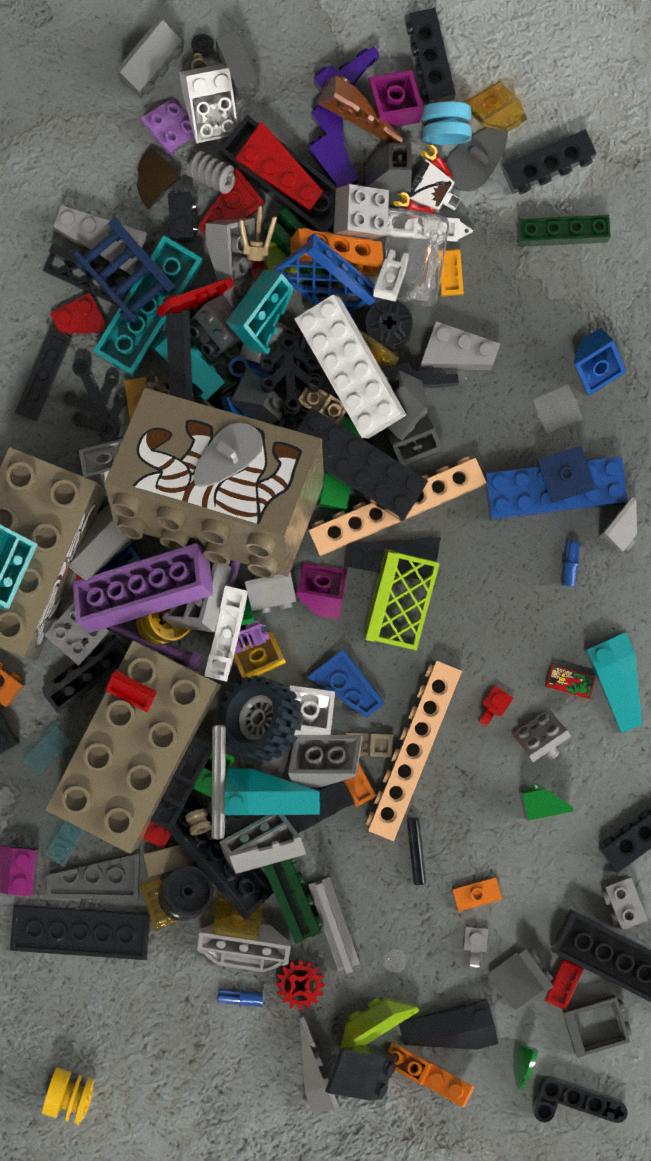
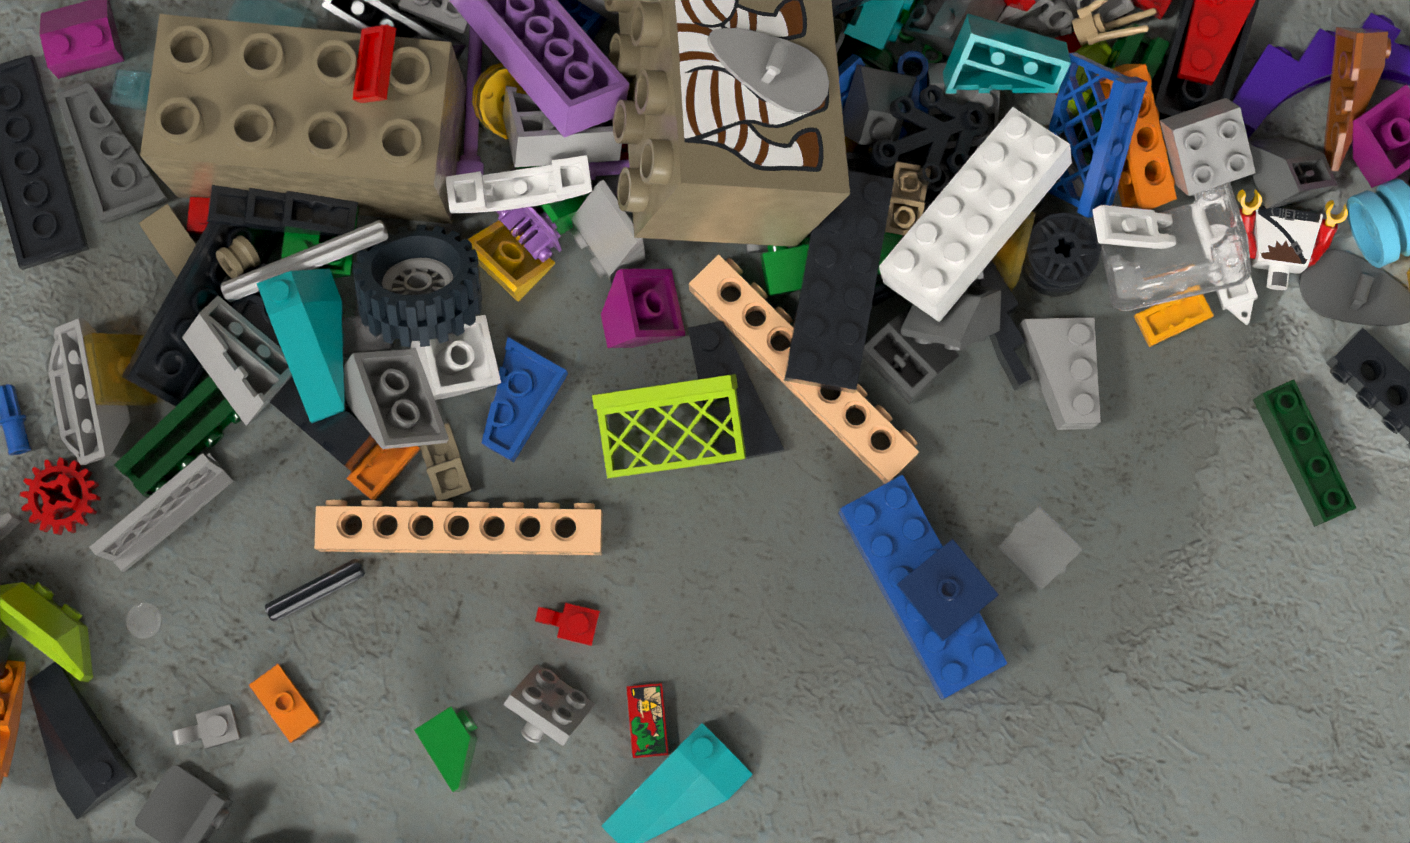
camera: 70 degrees right, 5 degrees down
(157, 925) = (103, 271): clear yellow slope -> none
(182, 906) = (109, 277): black wheel -> none
(571, 564) = (821, 654): blue axle -> none
(598, 361) = (1133, 577): blue slope -> none
(622, 528) = (902, 706): light grey slope -> none

